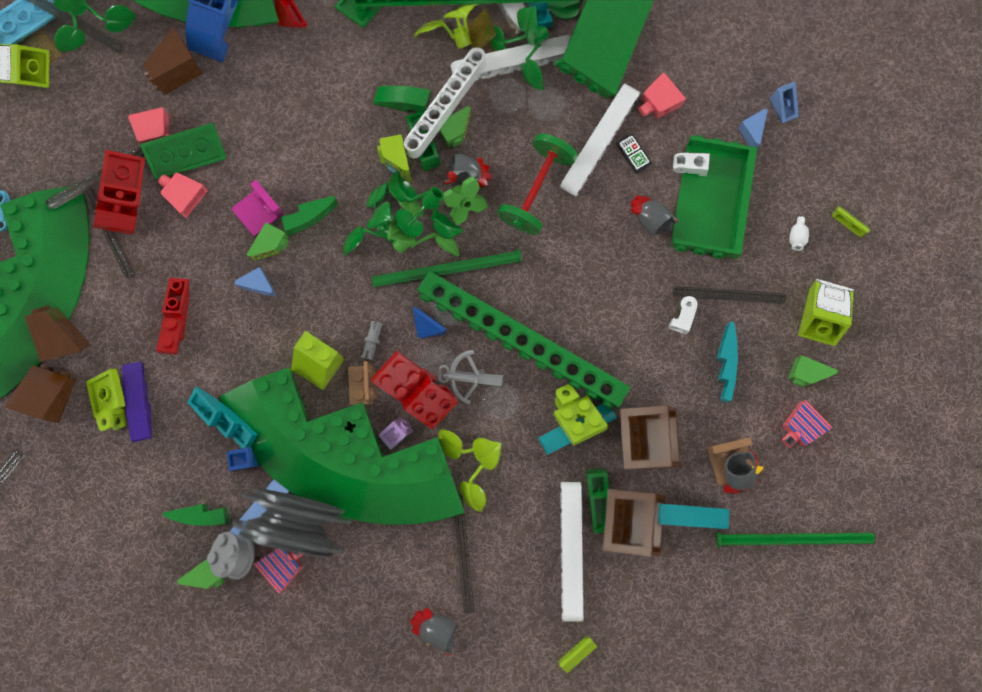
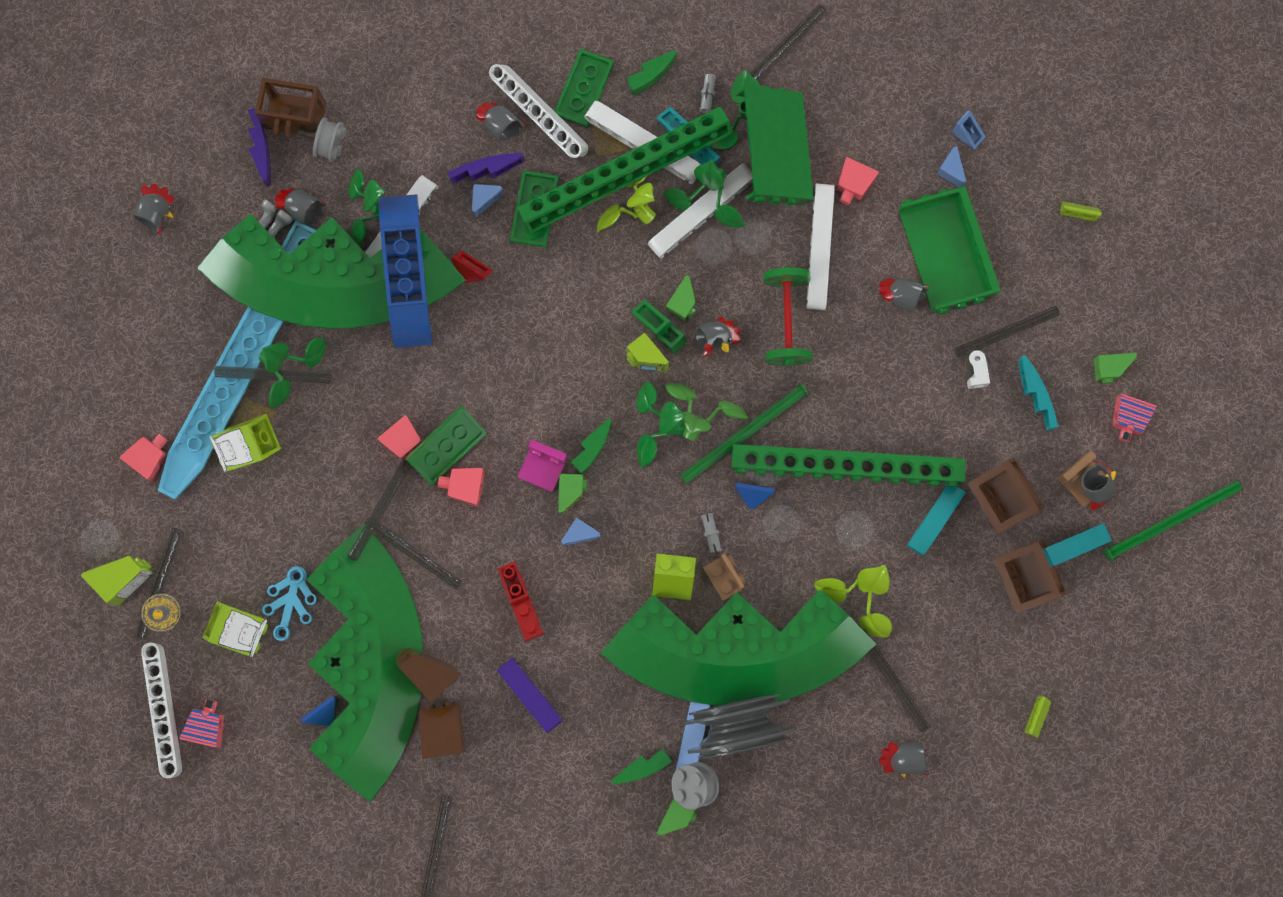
camera: 25 degrees left, 0 degrees up
(107, 406) = (506, 714): lime plate -> none
(119, 192) = (410, 514): red piece -> none
(171, 64) = (392, 369): reddish brown slope -> none
(223, 418) = (615, 670): teal slope -> none
(241, 459) = (652, 698): blue slope -> none
(280, 568) = (740, 774): torso -> none
(395, 432) = (777, 604): lavender bracket -> none
(403, 98) = (620, 296): green slope -> none
(410, 226) = (671, 384): green plant -> none
(415, 389) = (778, 557): red piece -> none
(436, 108) = (666, 274): white beam -> none
(464, 199) = (727, 362): bright green plant -> none
(478, 377) = (824, 519): light grey piece -> none
(481, 30) = (663, 199): clear yellow piece -> none
(571, 408) = (922, 505): lime plate -> none
(571, 551) = (987, 628): white beam -> none
(598, 493) = (986, 571): green slope -> none
(634, 153) = (856, 244): tile -> none
(691, 163) = (913, 228): white leg -> none
(799, 234) = (1041, 246): white plant -> none
(827, 312) = (1101, 305): lime slope -> none

